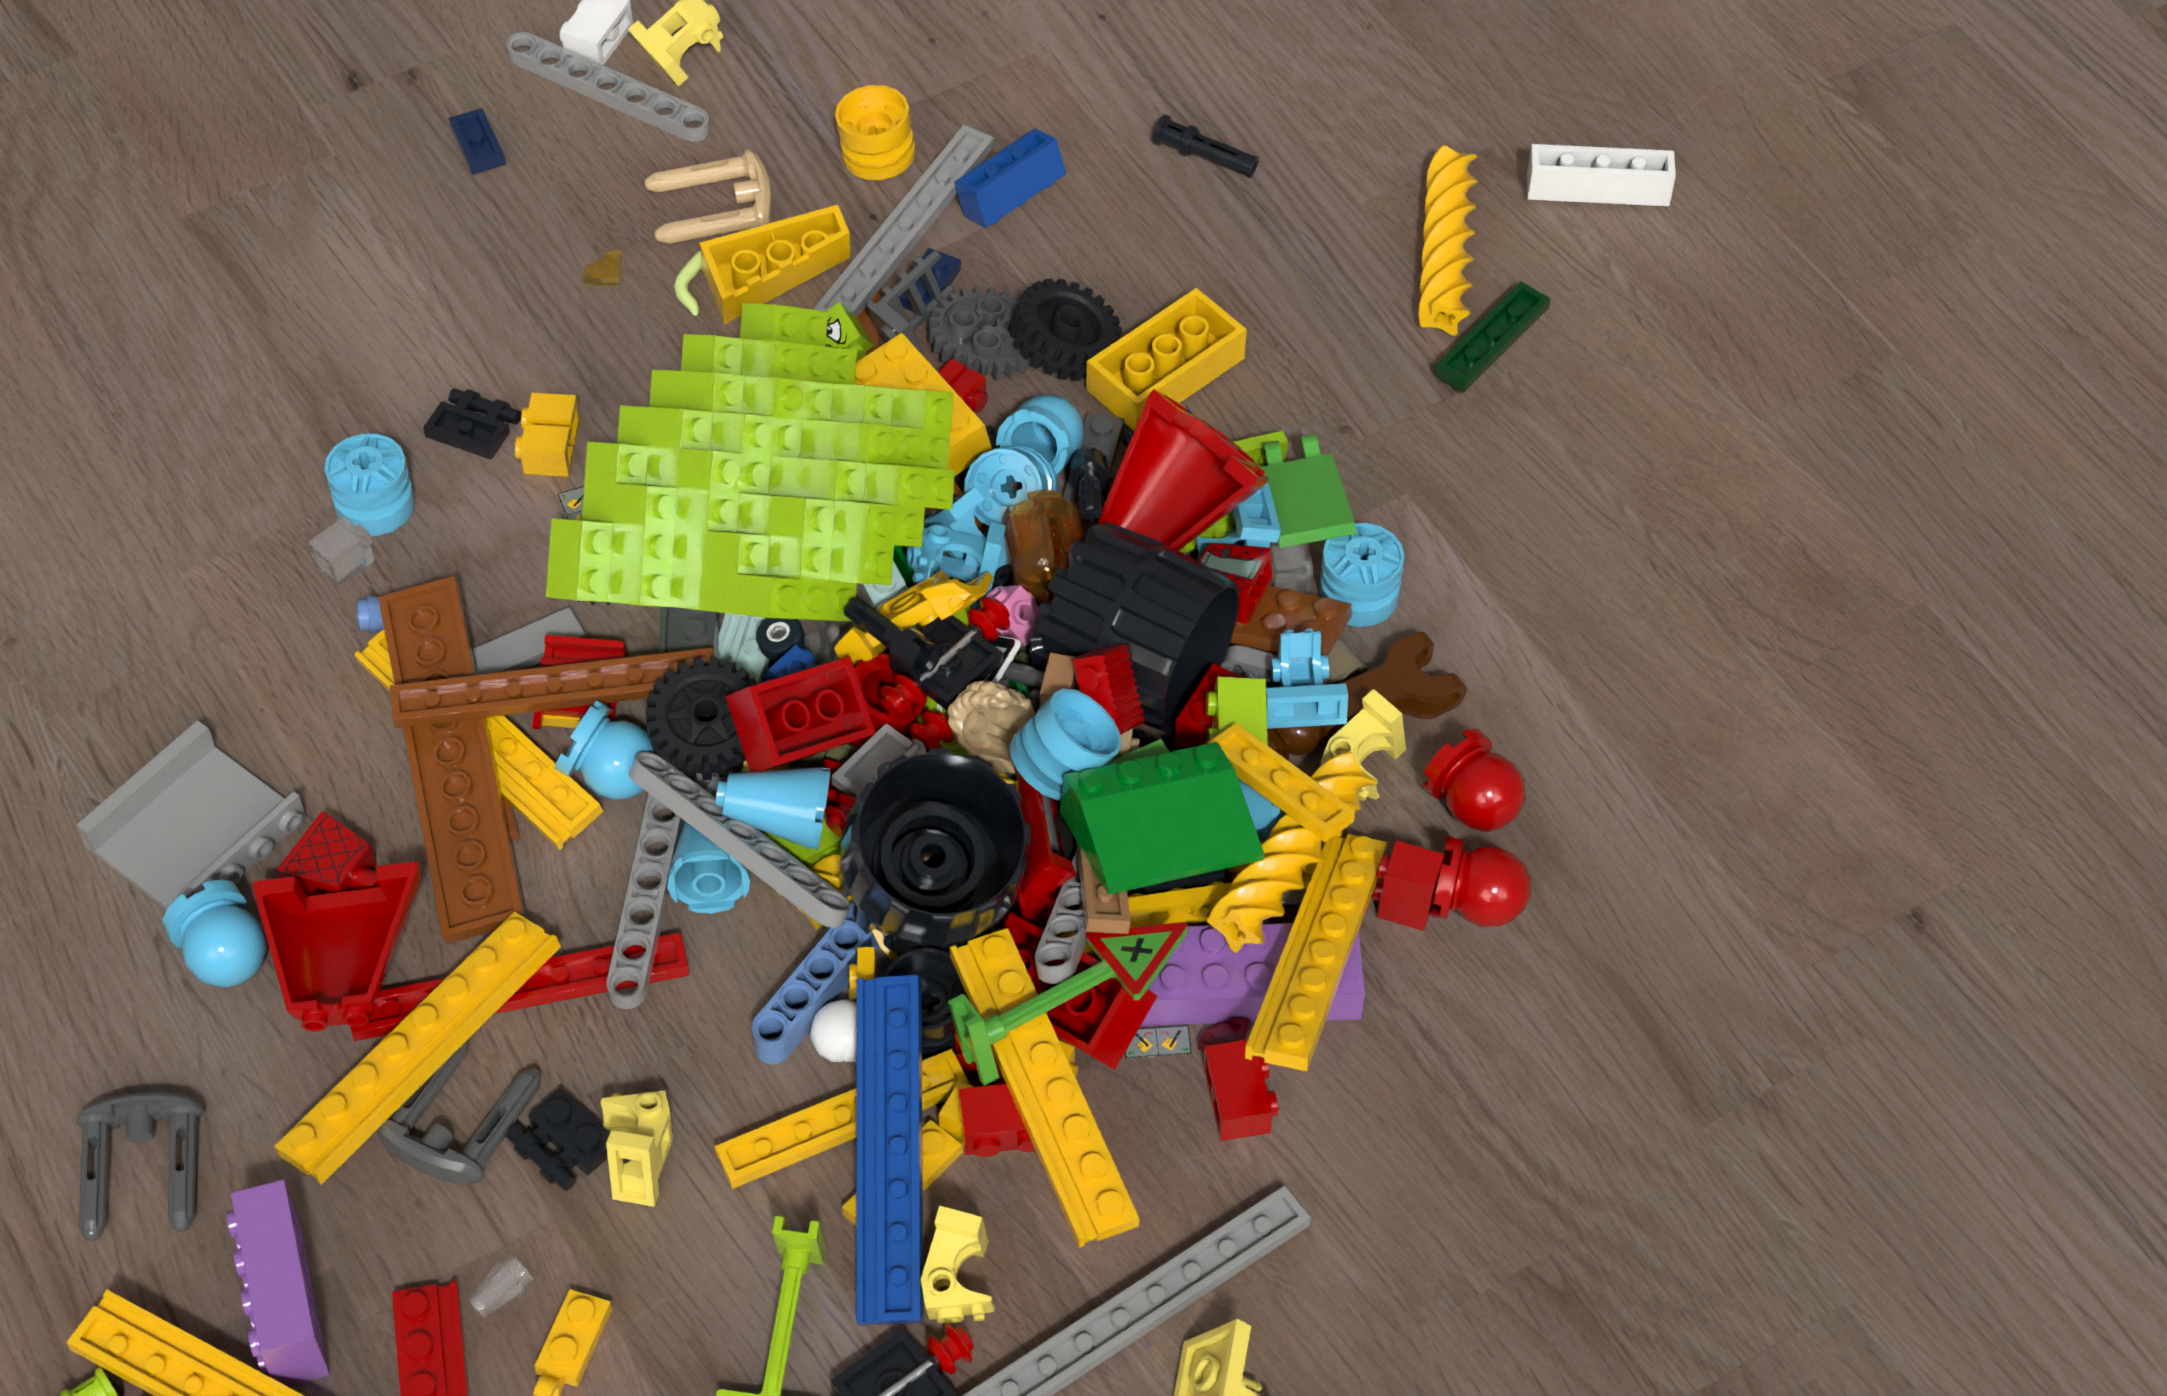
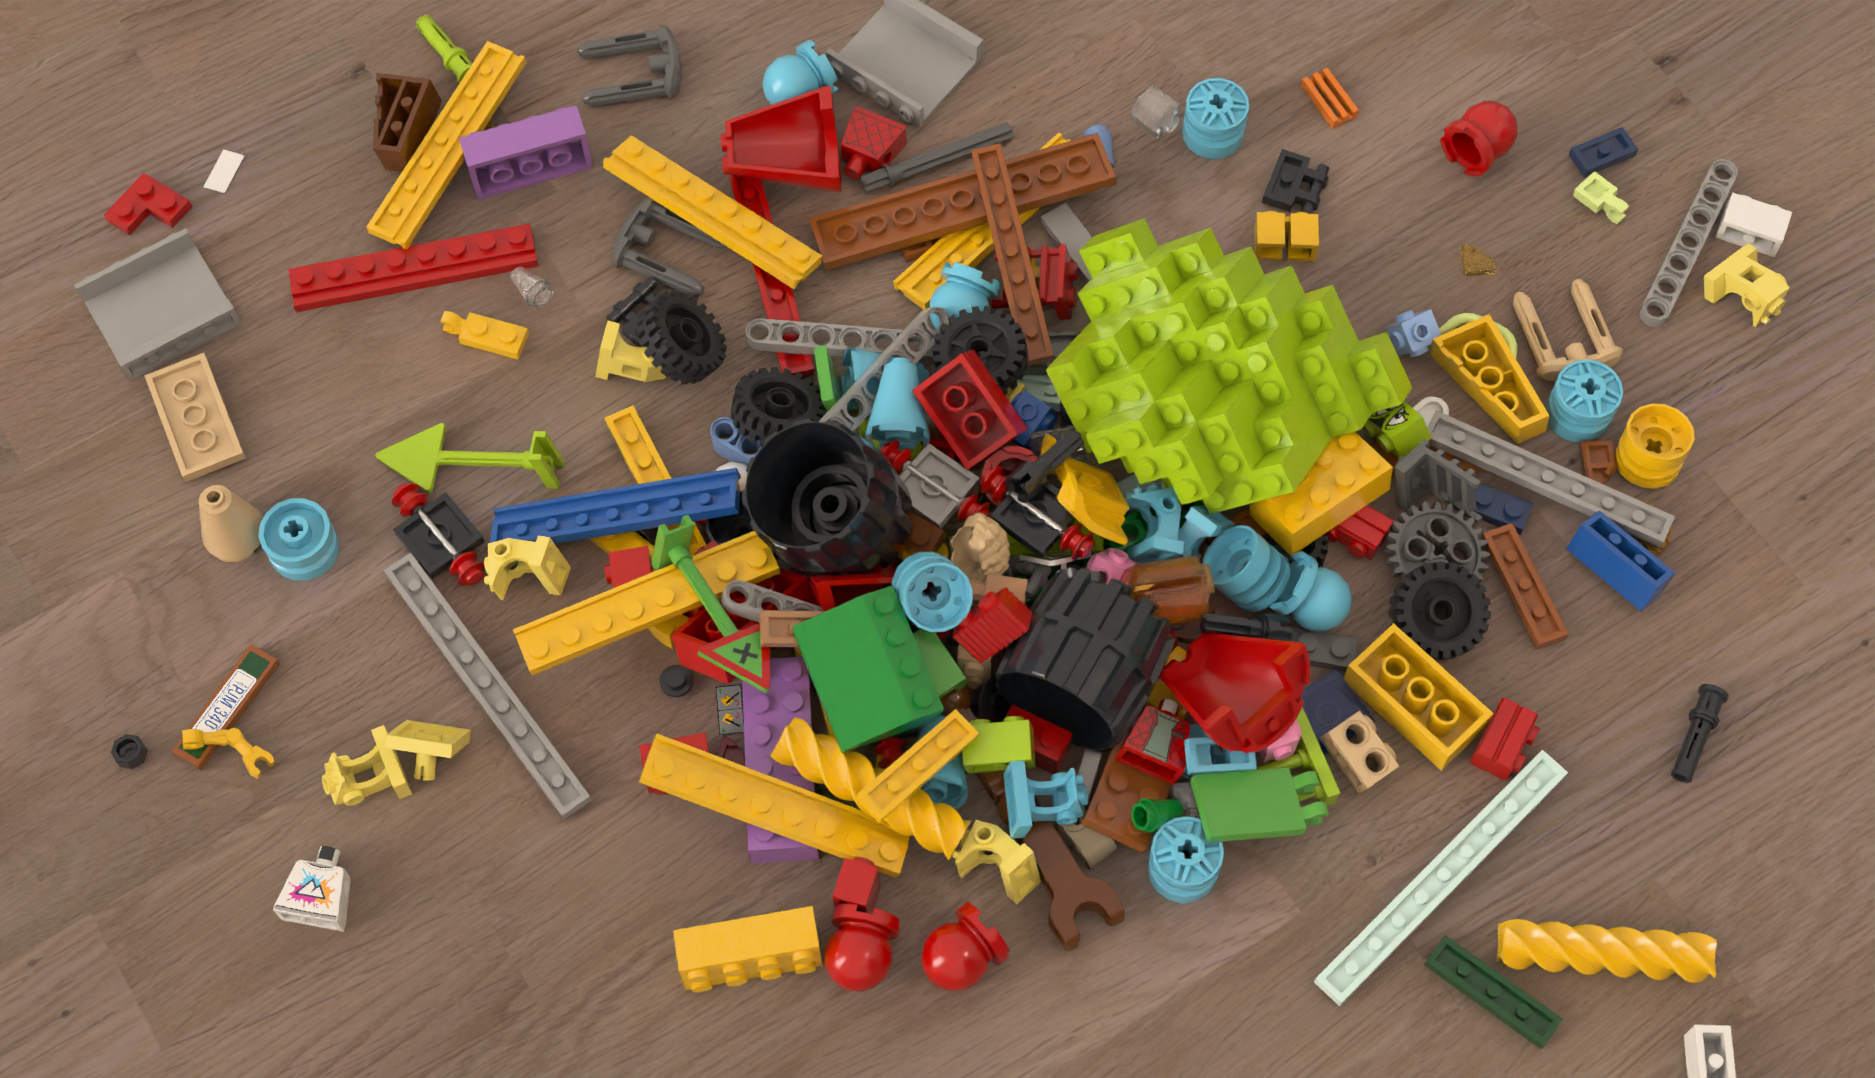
camera: 90 degrees right, 10 degrees up
(345, 378) = (1346, 110): none -> orange tile
(384, 843) = (934, 158): none -> dark grey axle
(446, 236) = (1480, 136): none -> red tile
(536, 151) = (1598, 194): none -> yellowish green plate
(628, 1070) = (681, 337): none -> black wheel
(703, 317) = (1413, 332): none -> light blue brick
(721, 902) = (828, 377): none -> bright green tile
(745, 963) = (773, 402): none -> black wheel
(811, 177) = (1584, 401): none -> medium azure wheel
(877, 193) = (1598, 459): none -> dark orange tile
(1031, 264) = (1524, 586): none -> dark orange plate
(1121, 1096) = (676, 681): none -> black plate
(1230, 294) = (1505, 738): none -> red brick
(1235, 410) = (1352, 756): none -> tan brick
(1319, 583) = (1153, 813): none -> green cone
(1370, 367) = (1440, 878): none -> light aqua plate
(1487, 998) = (748, 949): none -> yellow brick

